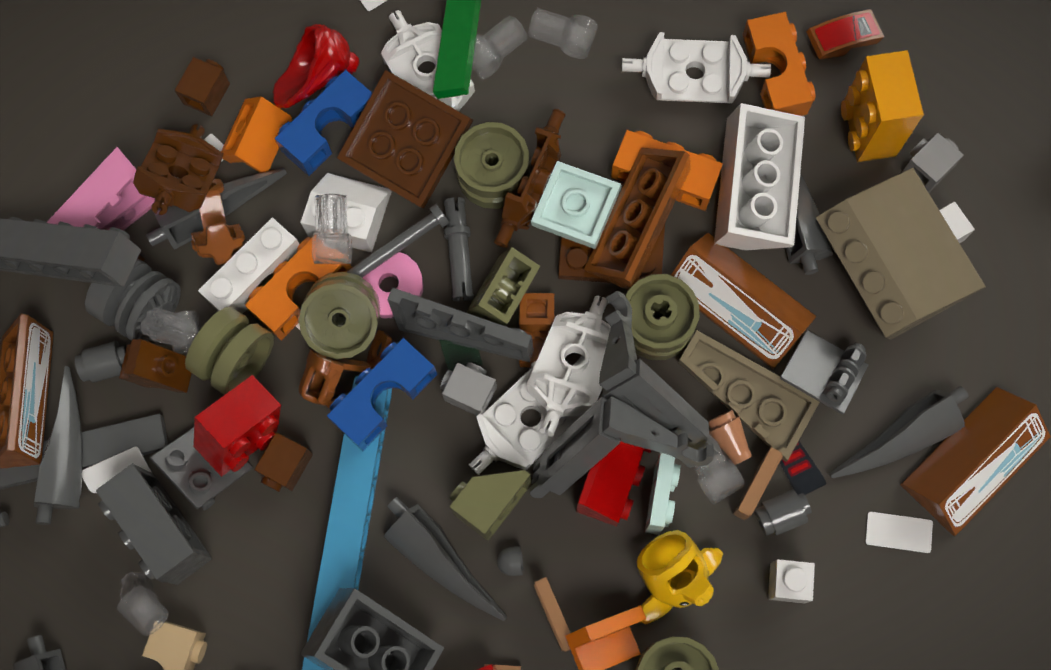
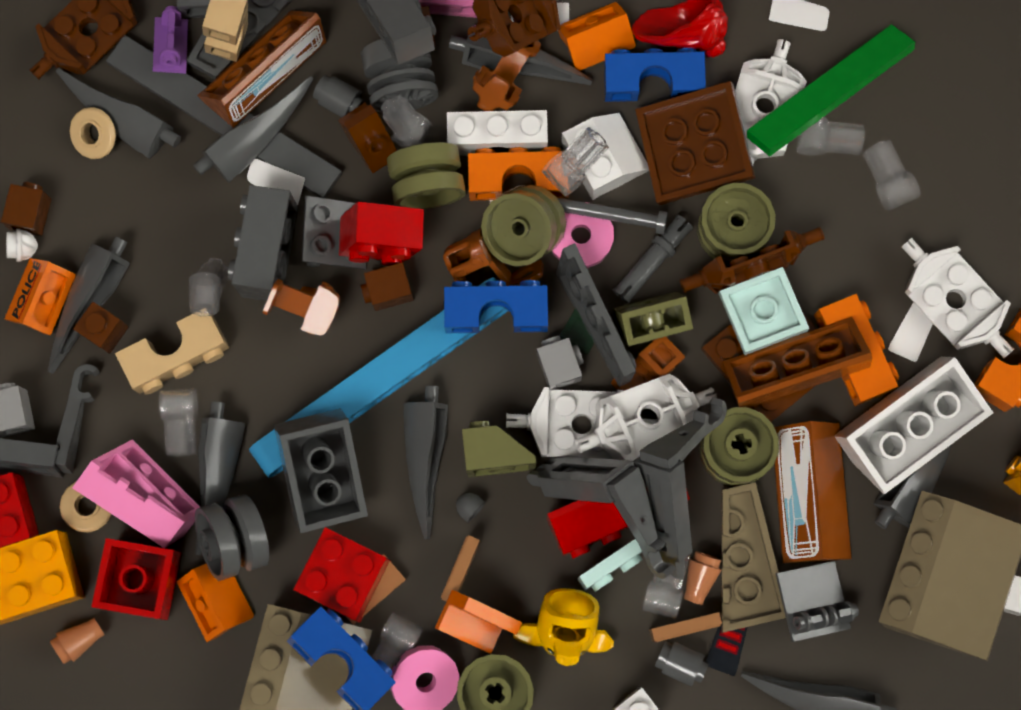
camera: 45 degrees right, 5 degrees up
(242, 531) = (315, 305): none -> piece
(690, 124) = (911, 334): none -> white sticker

